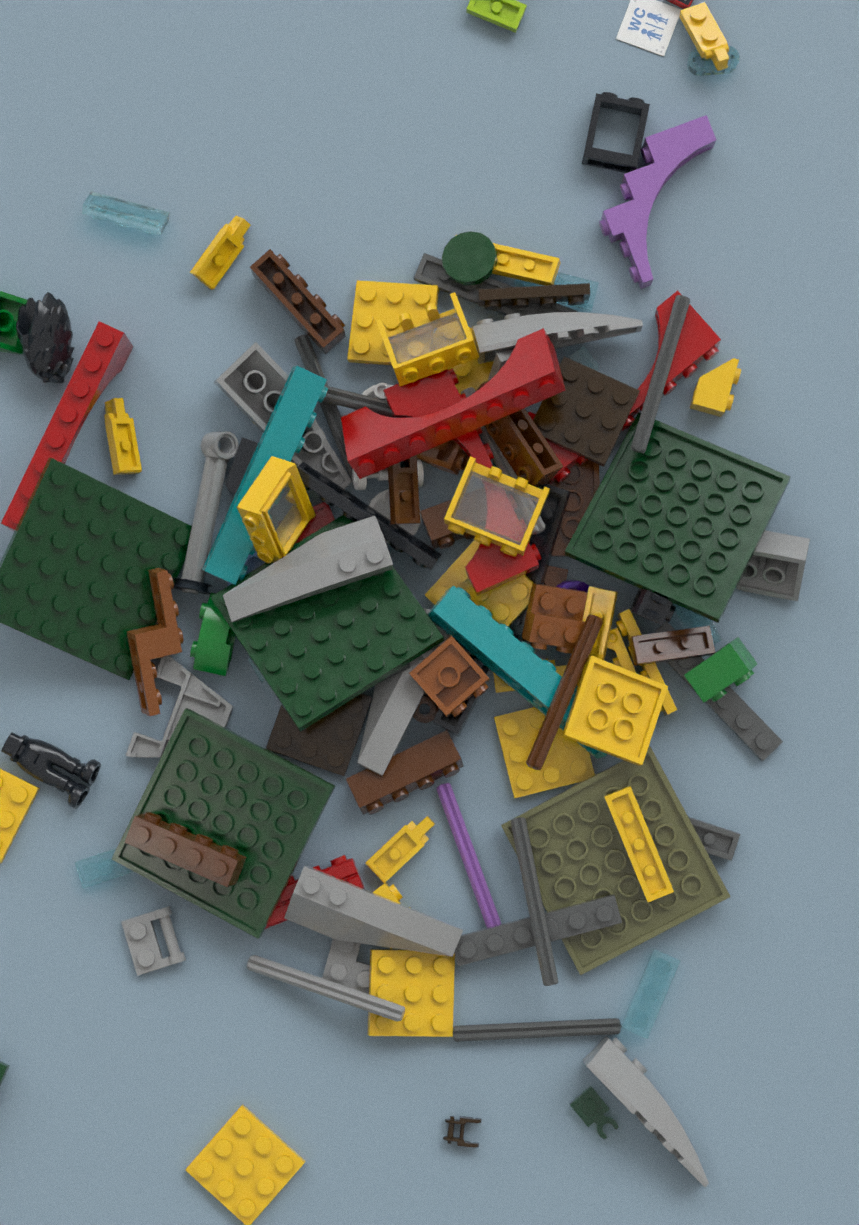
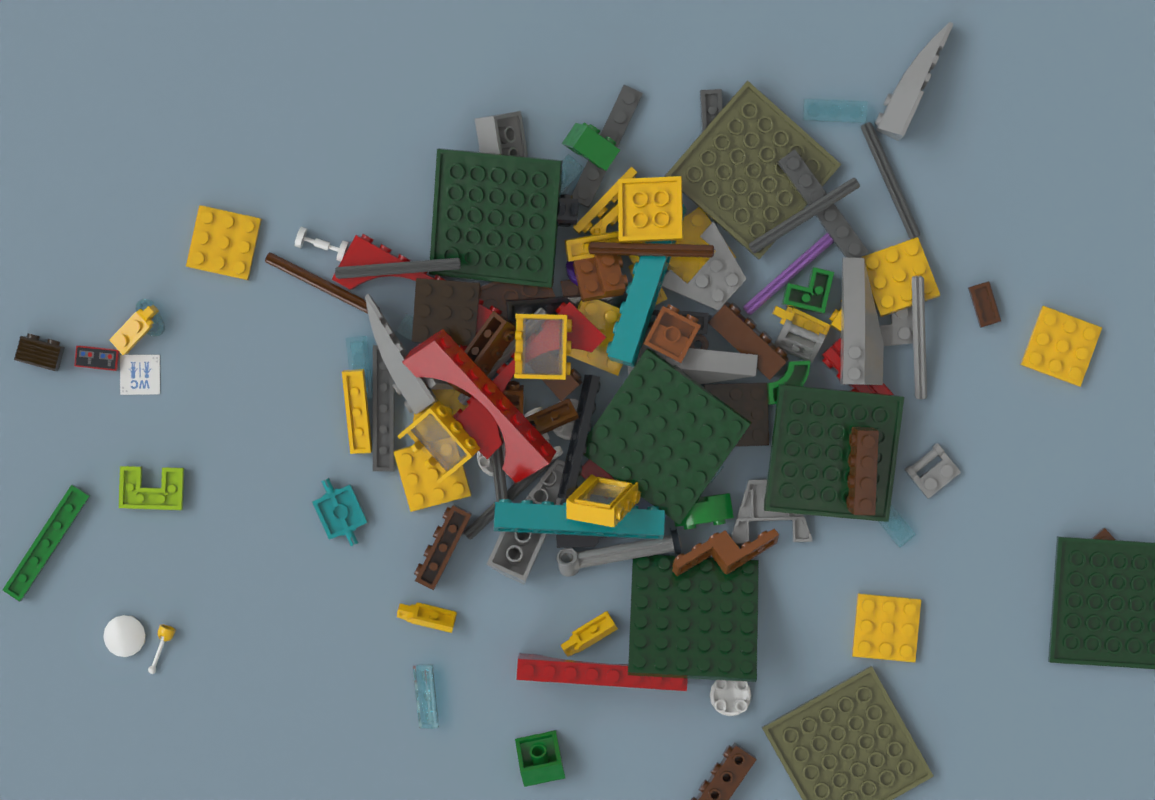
camera: 115 degrees left, 5 degrees up
(37, 759) = (838, 602): black piece -> none
(46, 338) = (539, 716): black head -> none
(313, 568) = (632, 459): light grey wedge -> none
(335, 1088) = (984, 304): none -> reddish brown plate
(338, 811) = (795, 374): none -> green brick
(381, 828) = (797, 345): none -> light grey plate
(389, 195) = (339, 512): none -> teal plate
(427, 873) = (812, 297): none -> green brick
(460, 1140) = (973, 207): dark brown piece -> none
(469, 258) = (365, 436): dark green tile -> none
(496, 760) = (715, 280): none -> light grey wing
(523, 296) = (380, 388): dark brown plate -> none
(591, 1109) = (929, 121): clear green plate -> none
(610, 159) = (253, 366): black window -> none
(639, 844) = (736, 157): yellow plate -> none
(666, 154) = (264, 333): medium lavender arch -> none
(671, 645) = (588, 187): plate -> none
(682, 272) = (316, 281): none -> reddish brown axle
(714, 388) = (391, 226): yellow slope -> none
(742, 276) = (301, 237): none -> white wheel
(770, 182) = (223, 242): none -> yellow plate

